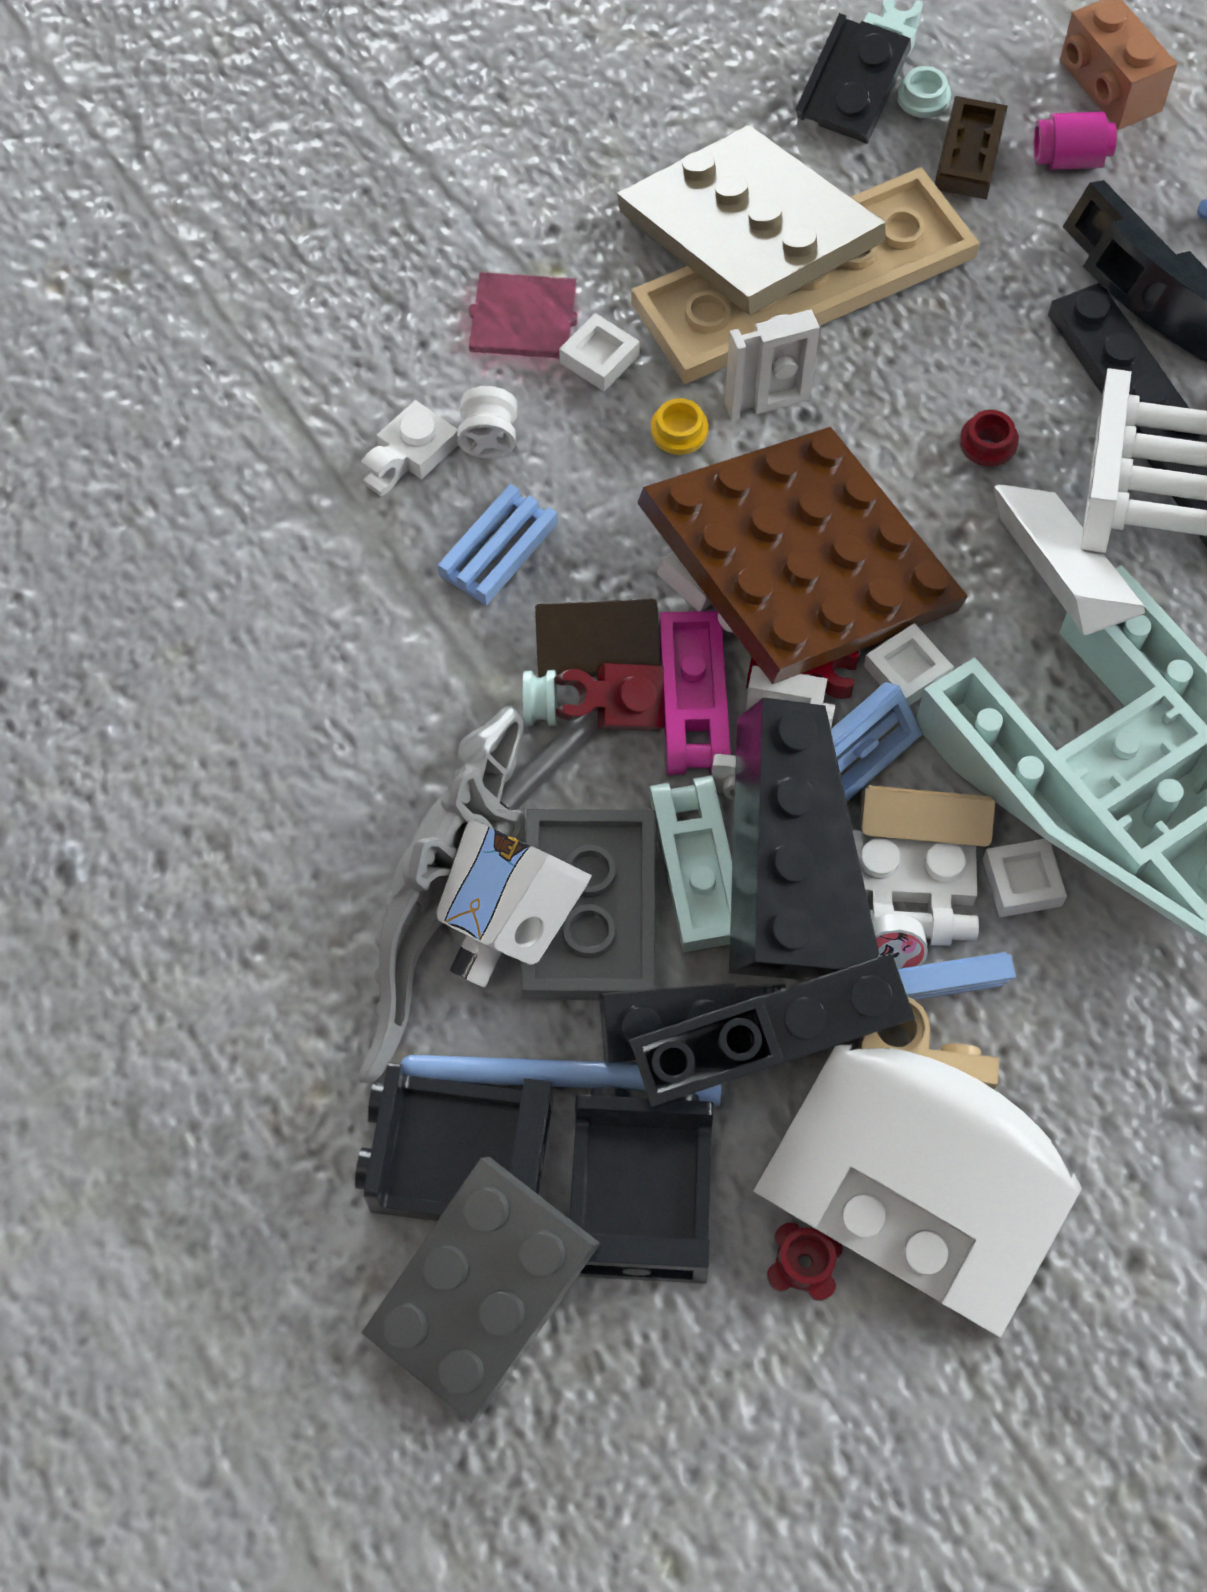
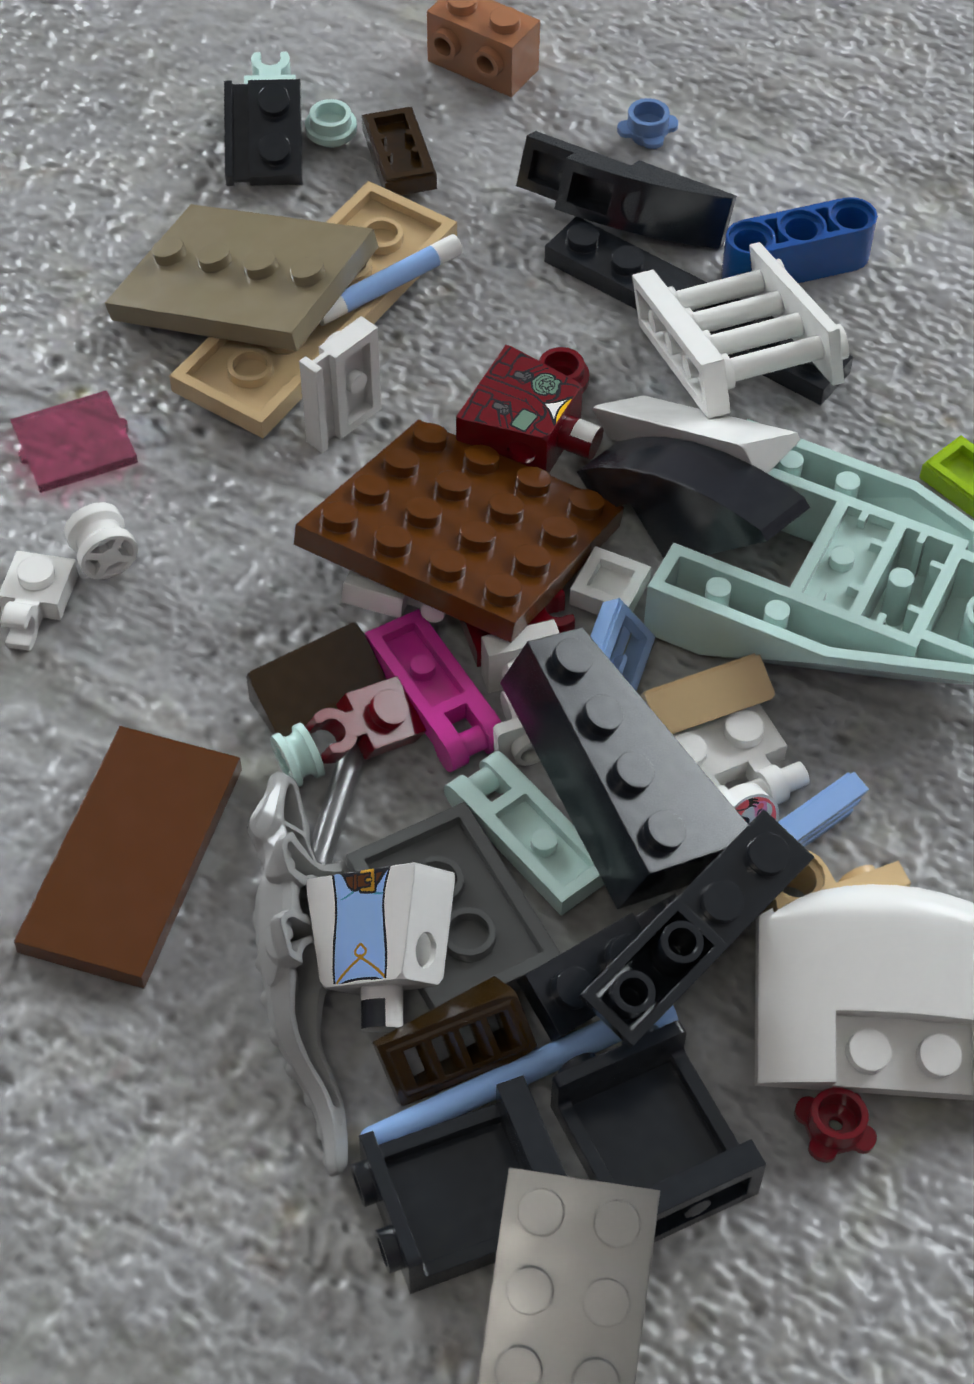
camera: 30 degrees left, 10 degrees down
(358, 720) = (129, 857): none -> reddish brown tile
(524, 509) = (179, 605): light blue tile -> none
(540, 1043) = (464, 1063): none -> dark brown slope
(599, 352) = (169, 441): white plate -> none
(679, 426) = (281, 474): yellow plate -> none
(885, 276) = (394, 276): none -> light blue bar
(929, 465) = (527, 413): none -> dark red torso
(1023, 617) = (693, 493): none -> black slope
(1024, 877) = (816, 712): white plate -> none
(1074, 140) = (484, 114): dark pink brick -> none

